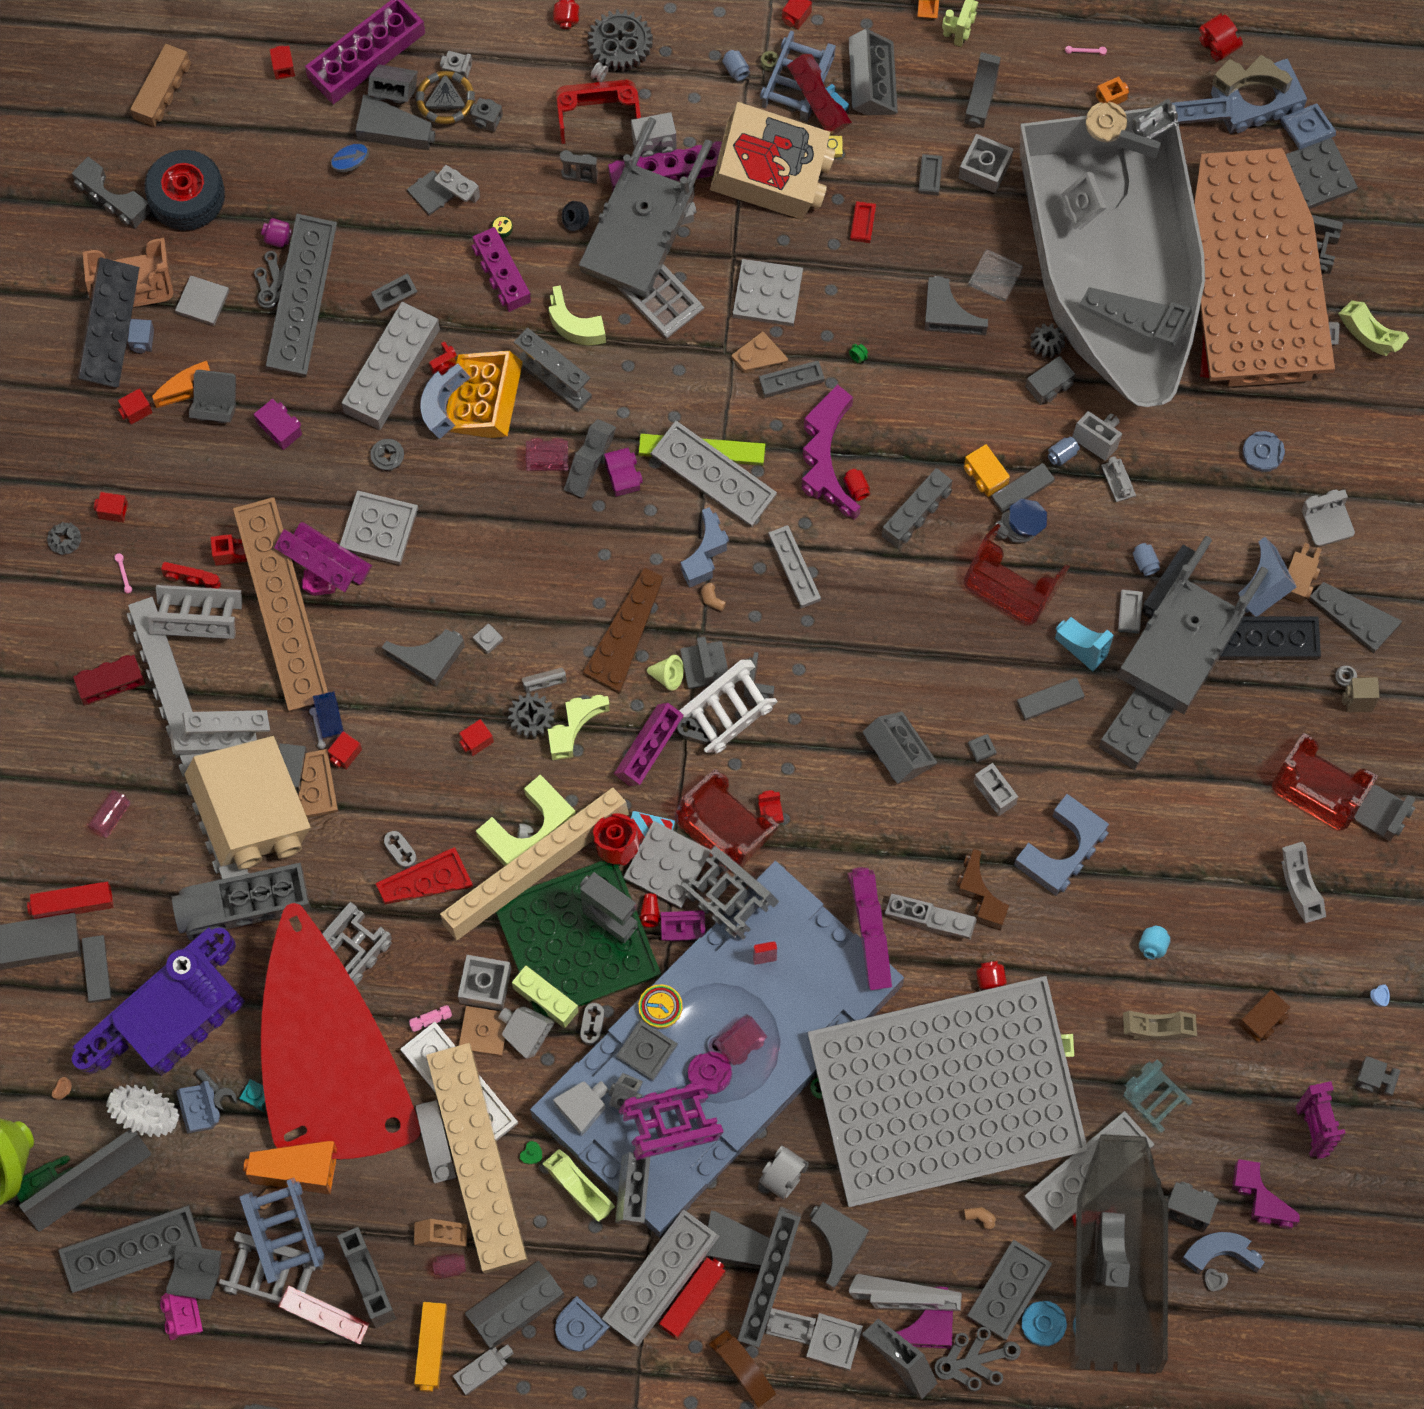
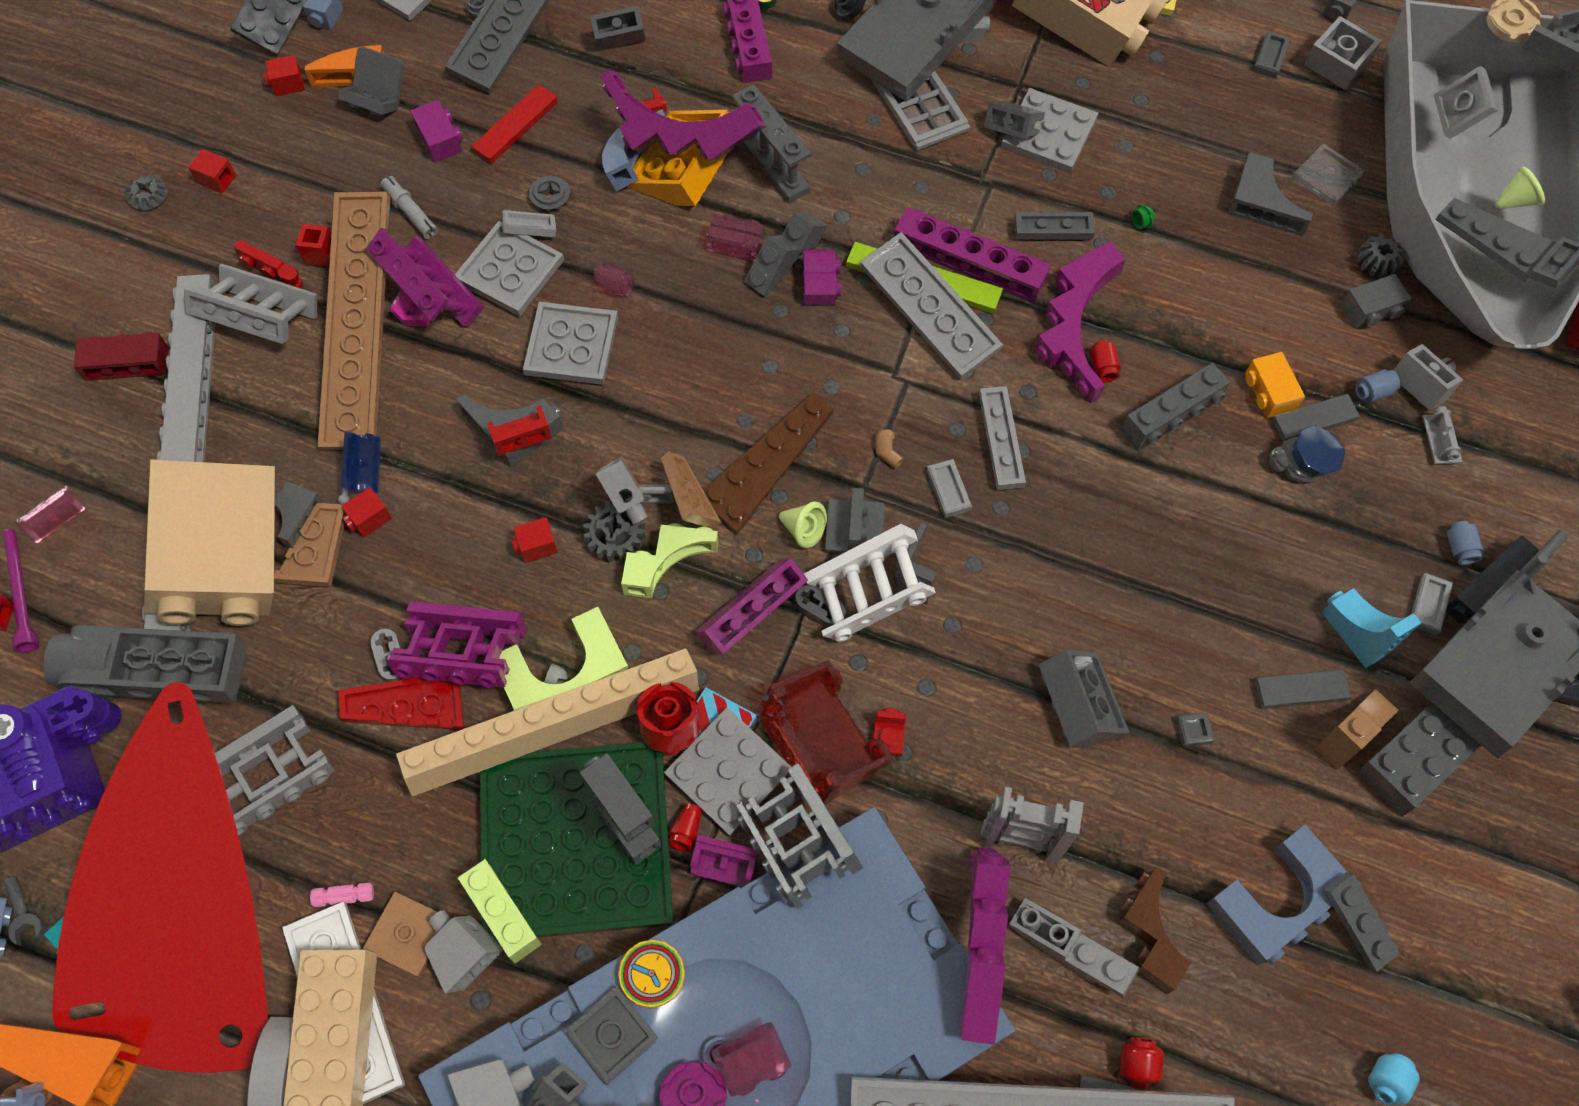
camera: 15 degrees right, 5 degrees down
(119, 559) = (198, 229): bright pink hinge -> none
(133, 908) = (25, 638): none -> magenta piece
(217, 730) = (202, 437): light grey fence -> none
(286, 500) = (402, 200): none -> light grey pin
(332, 407) = (514, 124): none -> red tile
(382, 486) = (528, 223): none -> light grey tile
(390, 366) = (580, 104): light grey brick -> none
(440, 660) = (520, 432): none -> red hinge
(448, 576) = (570, 343): none -> light grey plate
(448, 813) = (457, 623): none -> magenta fence
(451, 383) = (714, 136): none -> magenta arch
(464, 515) = (614, 279): none -> clear pink brick
(484, 982) = (427, 866): light grey brick -> none
(488, 638) = (594, 426): light grey plate -> none
(527, 679) = (617, 477): none -> light grey torso
(577, 330) = (812, 113): yellowish green arch -> none
(579, 674) = (688, 493): none -> medium nougat wing
(586, 1023) = (550, 963): light grey beam -> none
(699, 565) = (881, 406): sand blue arch -> none
(737, 294) = (1013, 119): none -> dark grey hinge
(742, 429) = (974, 255): none -> magenta brick
(758, 354) = (1021, 192): medium nougat wing -> none
(765, 616) = (949, 488): none -> light grey tile
(765, 953) = (822, 938): tile -> none
(863, 222) = (1180, 84): red tile -> none
(882, 844) = (1032, 825): none -> light grey fence
(995, 789) = (1204, 791): light grey brick -> none
(1006, 588) = (1270, 533): clear red windscreen -> none
(1091, 717) = (1356, 729): none -> medium nougat arch
(1116, 848) = (1361, 921): none -> dark grey plate
(1138, 268) = (1521, 191): none -> yellowish green hat

